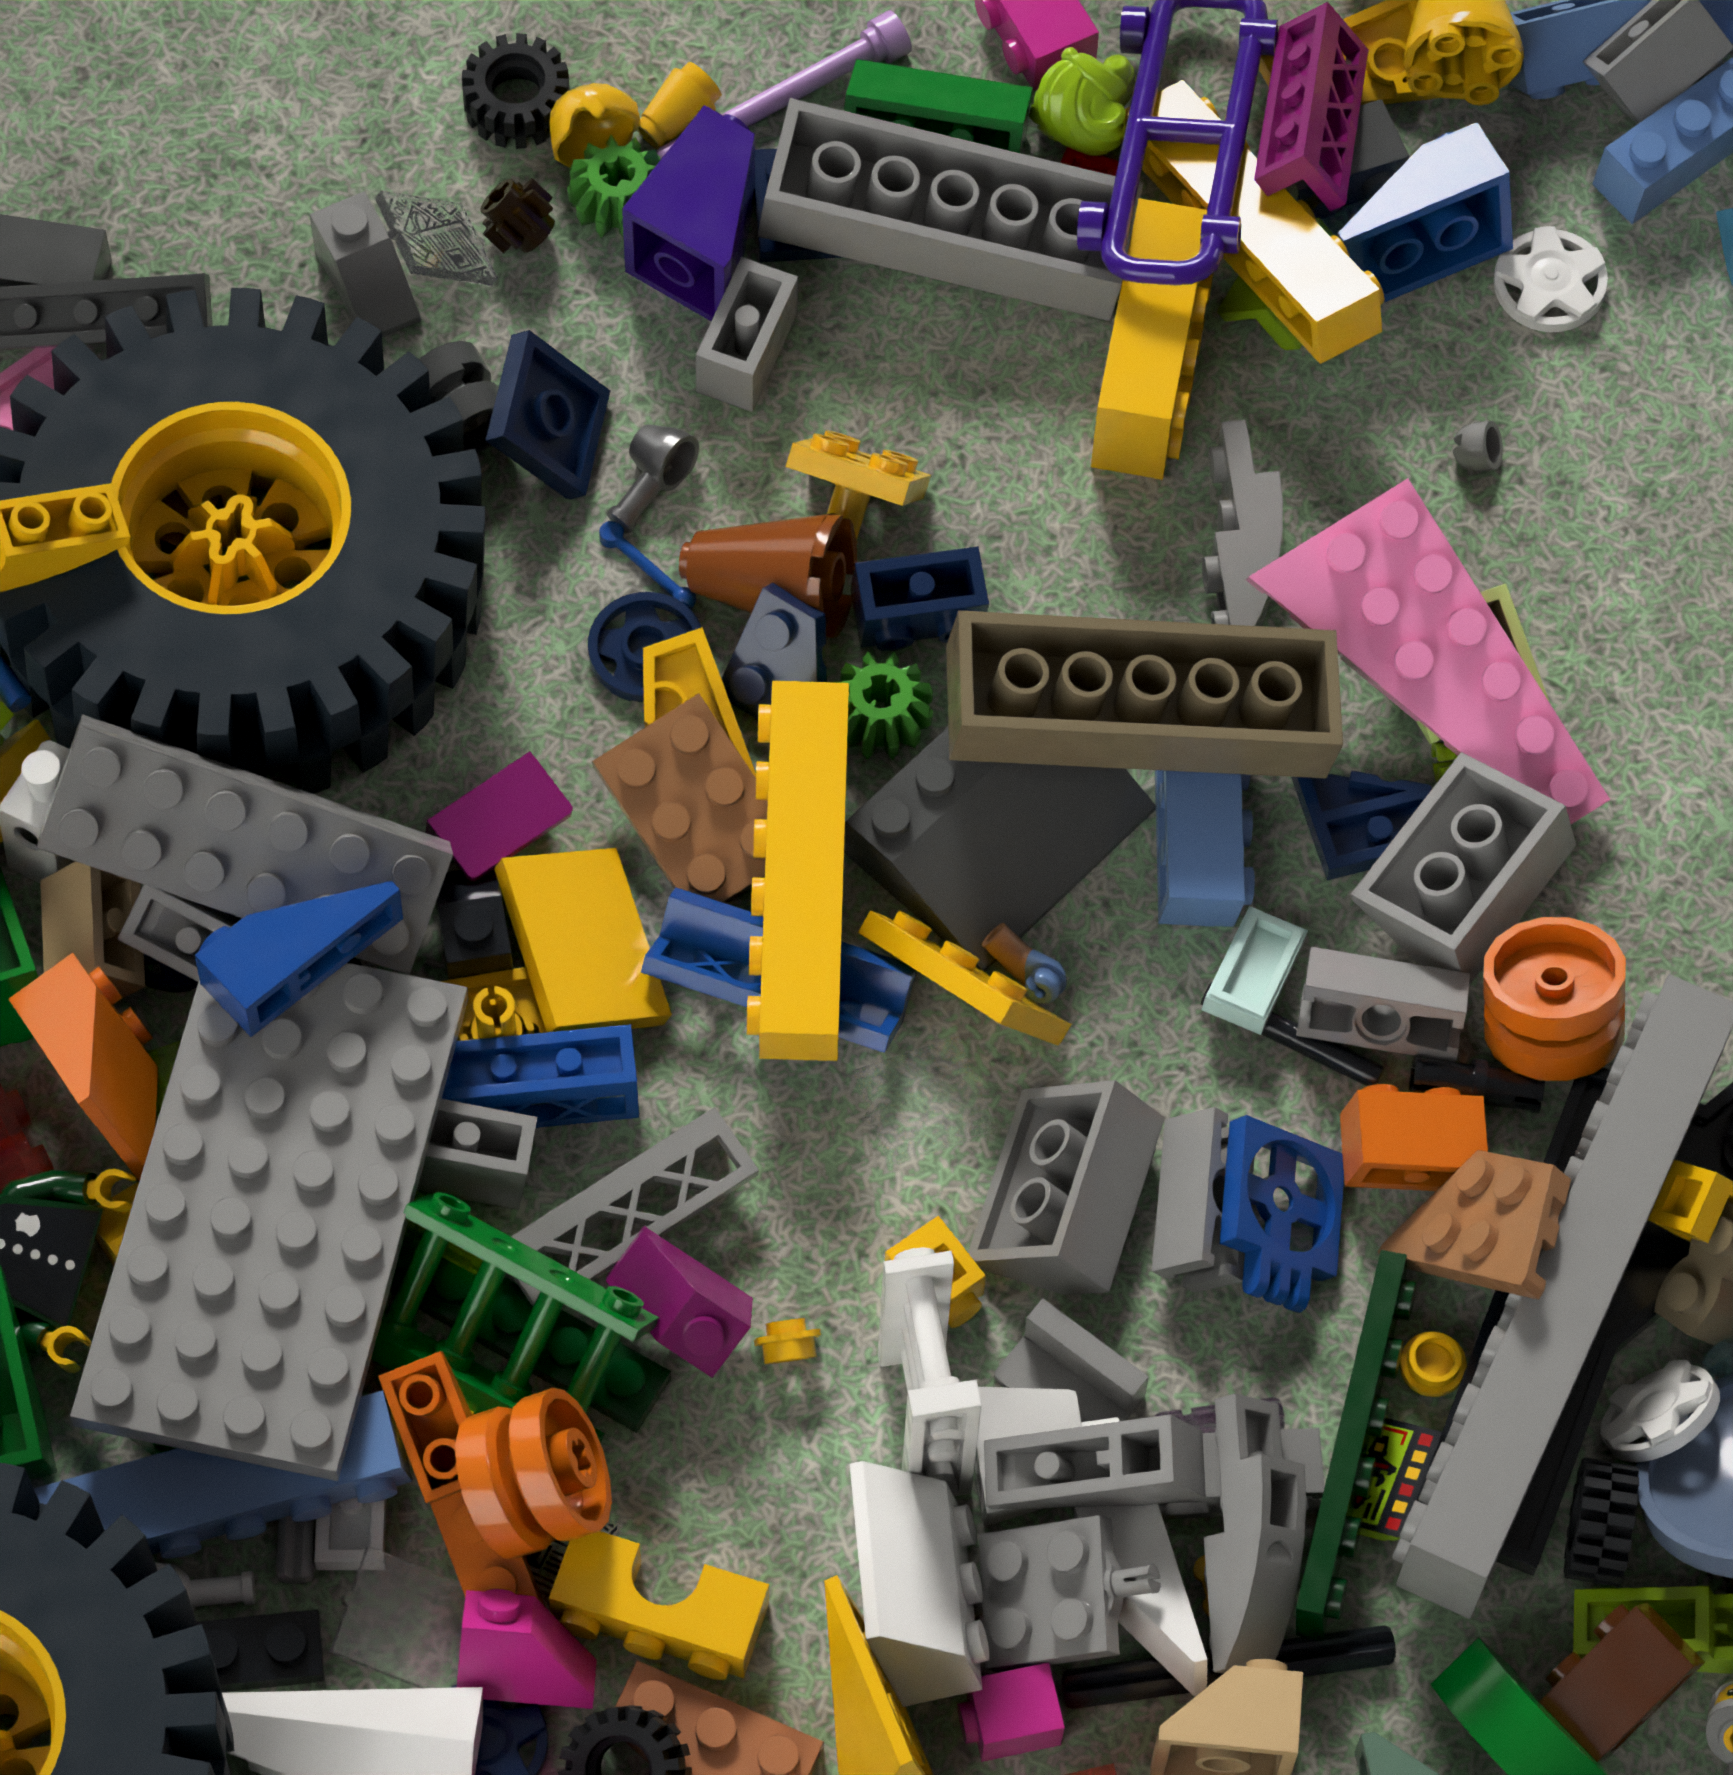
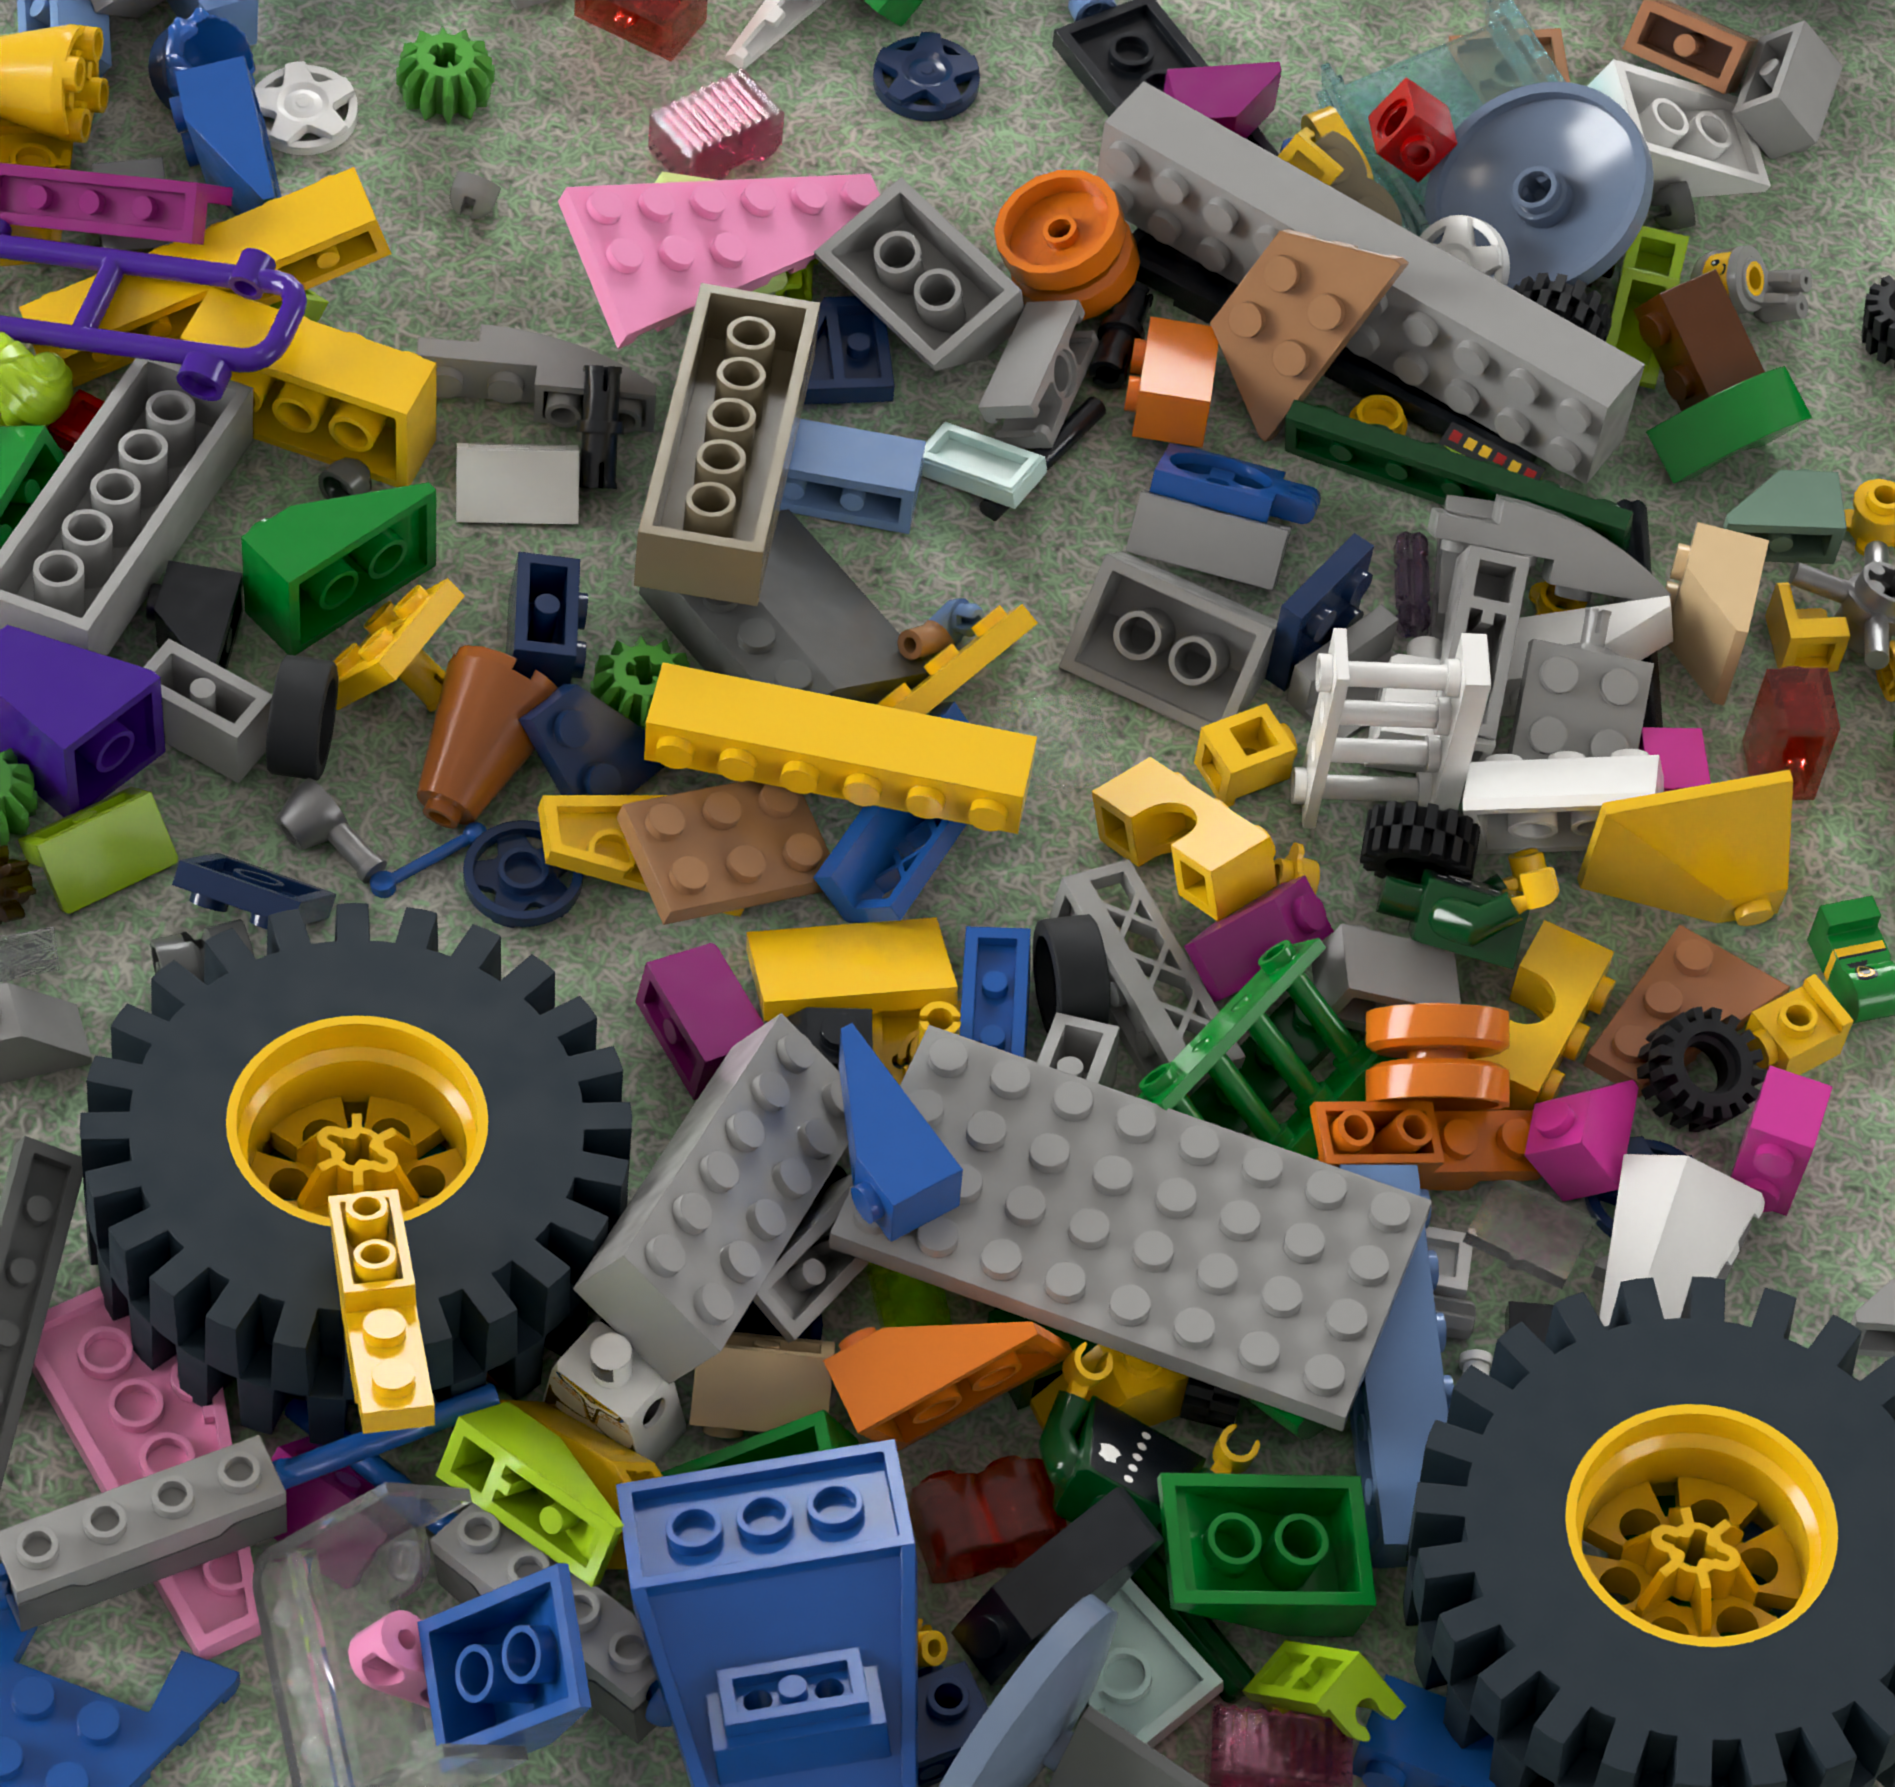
camera: 85 degrees left, 10 degrees down
(589, 292) = (101, 848): none -> lime panel
(599, 1133) = (1070, 969): none -> black tyre
(663, 1438) = (1378, 970): none -> light grey brick
(757, 1505) = (1469, 915): none -> dark green torso
(762, 1249) = (1215, 852): none -> yellow arch
(777, 405) = (302, 717): none -> black tyre
(832, 1434) = (1415, 838): none -> black tyre
(854, 316) = (198, 609): none -> black slope
(935, 398) = (335, 560): none -> green slope
(1073, 407) = (345, 478): none -> dark grey hinge
(1118, 550) = (517, 483): none -> white panel
(1121, 1314) = (1318, 606): none -> dark blue plate
(1191, 598) = (600, 427): none -> black pin
(1551, 166) = (191, 44): none -> blue hair
(1603, 395) = (445, 74): none -> bright green gear
(1633, 649) = (716, 128): none -> clear pink brick

